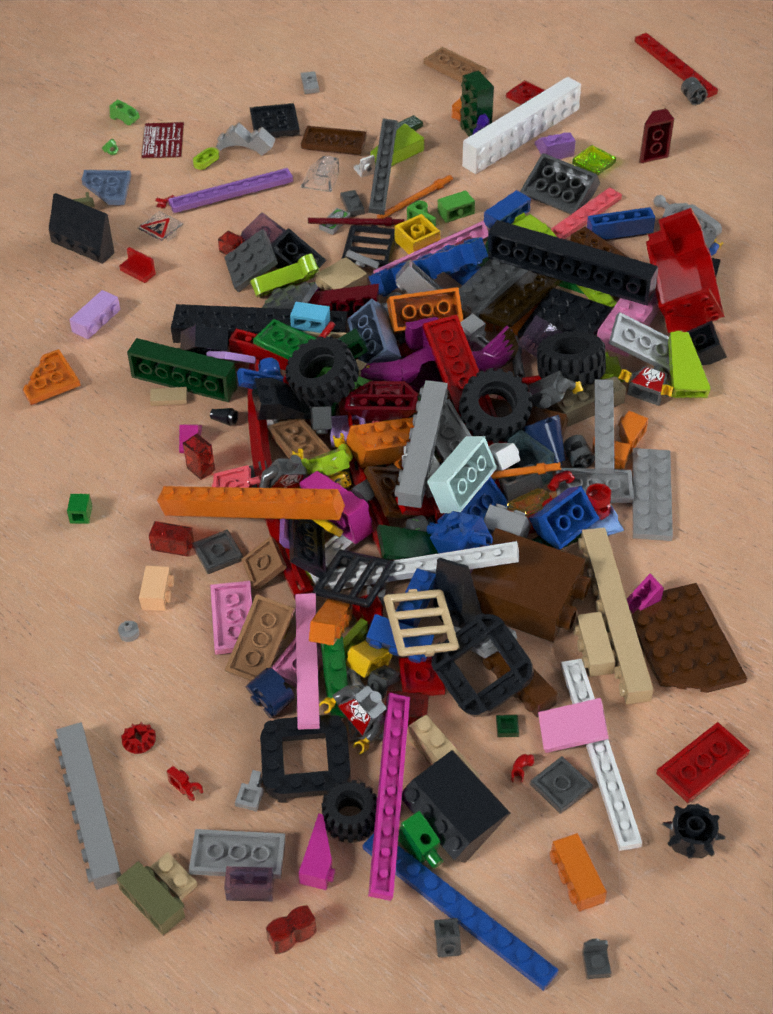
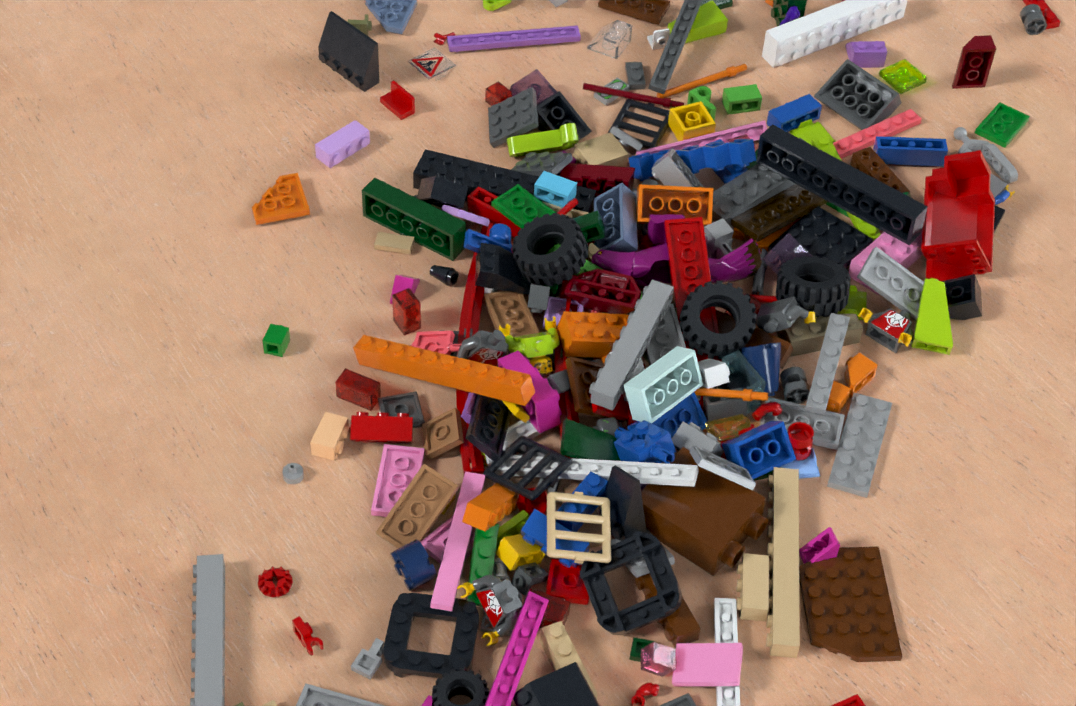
camera: 10 degrees right, 0 degrees up
(204, 570) = (381, 428): none -> red brick
(526, 730) = (658, 659): none -> clear pink brick
(538, 539) = (722, 467): none -> light grey tile
(693, 187) = (1002, 124): none -> green tile

